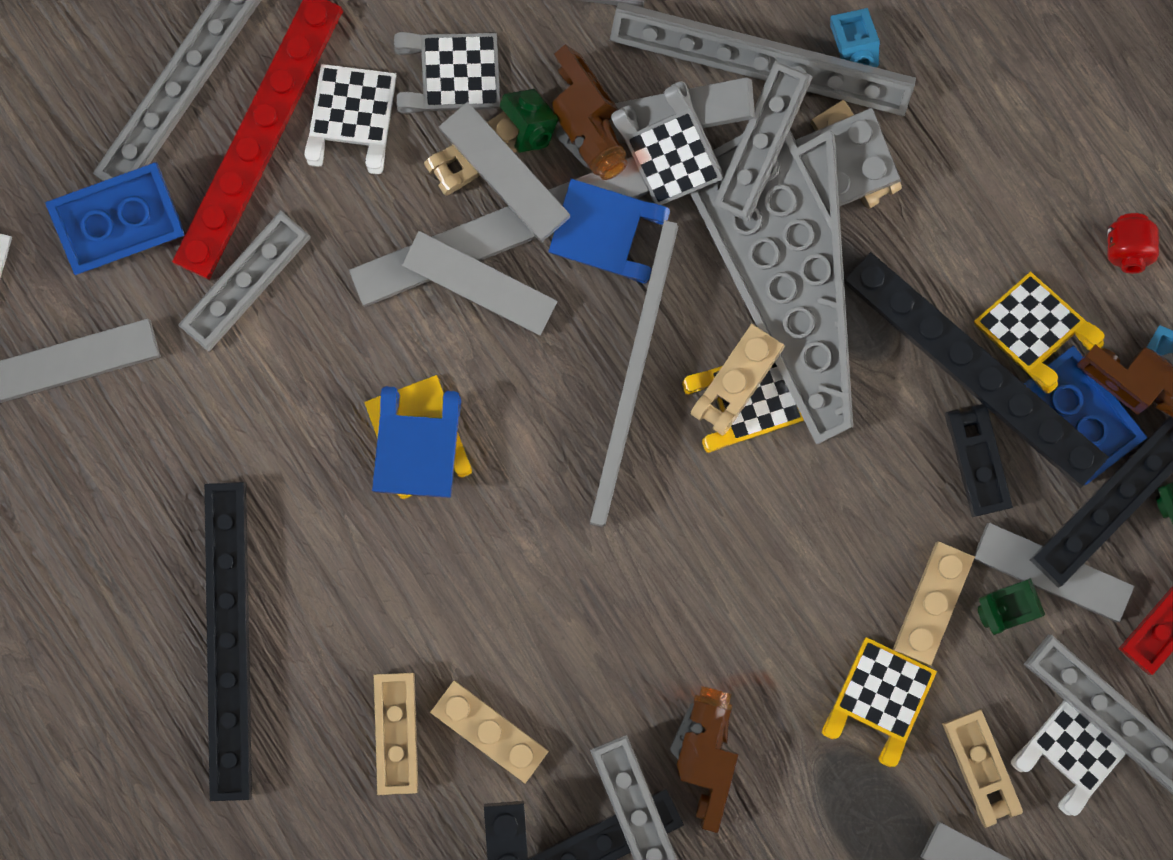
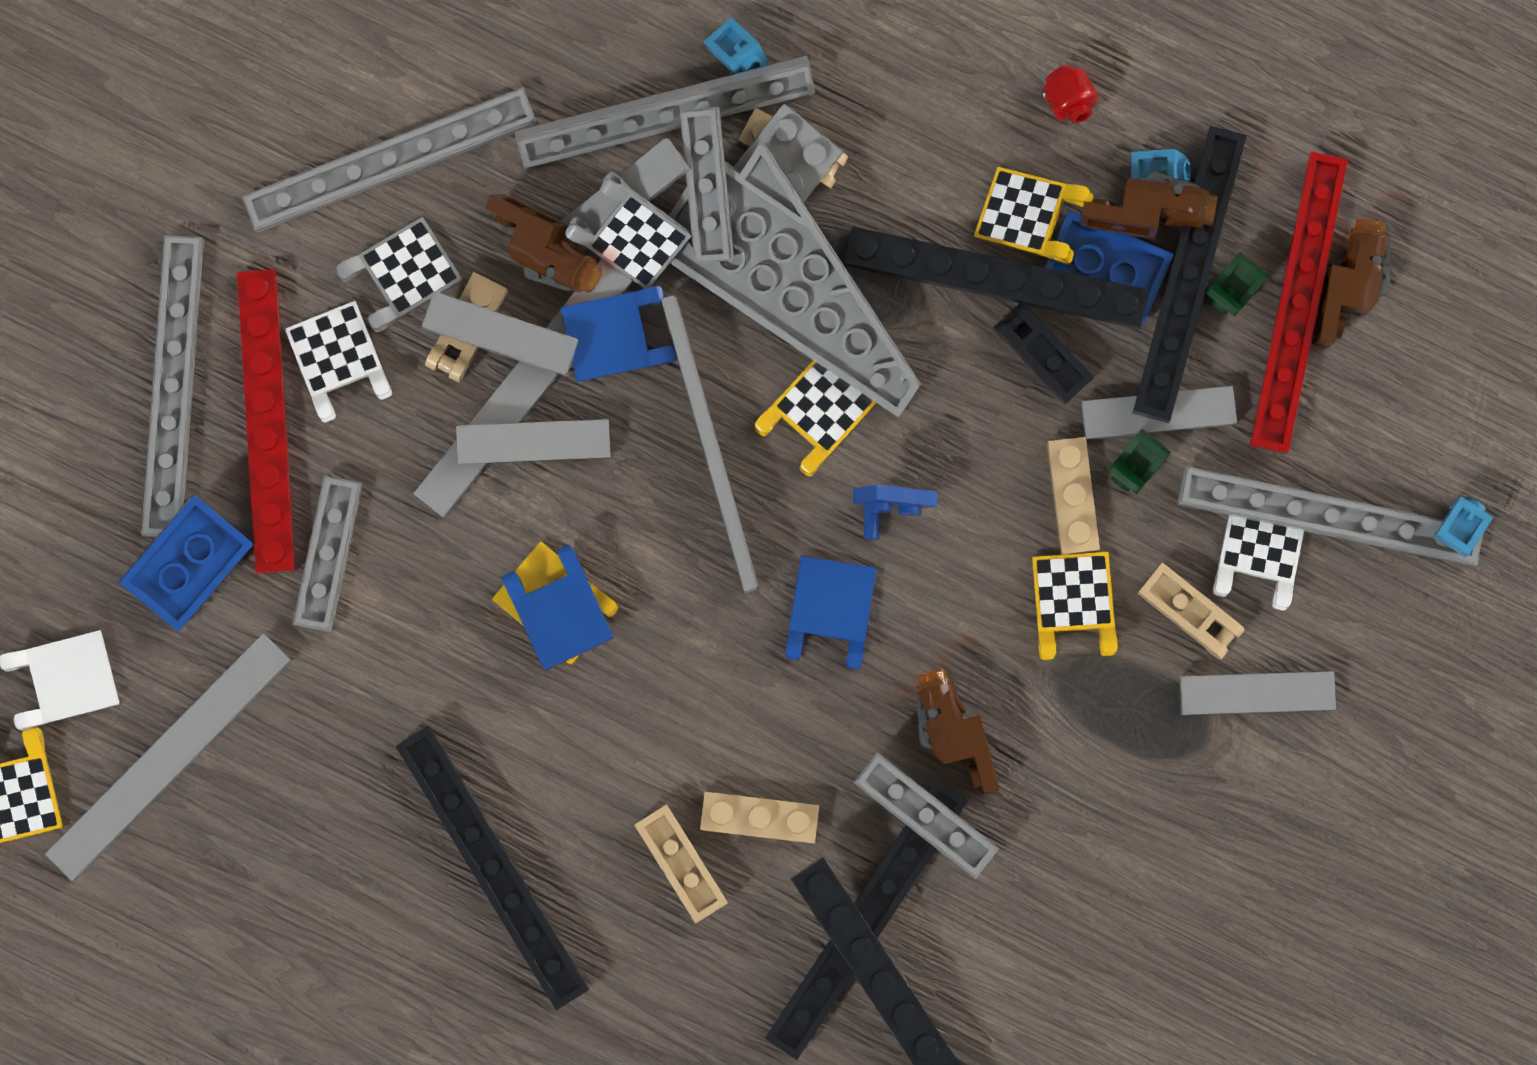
camera: 30 degrees left, 0 degrees up
(532, 118) = (495, 273): dark green bracket -> none
(663, 576) = (831, 603): none -> blue flag
(738, 378) = (801, 398): tan plate -> none
(761, 509) = (883, 498): none -> blue plate

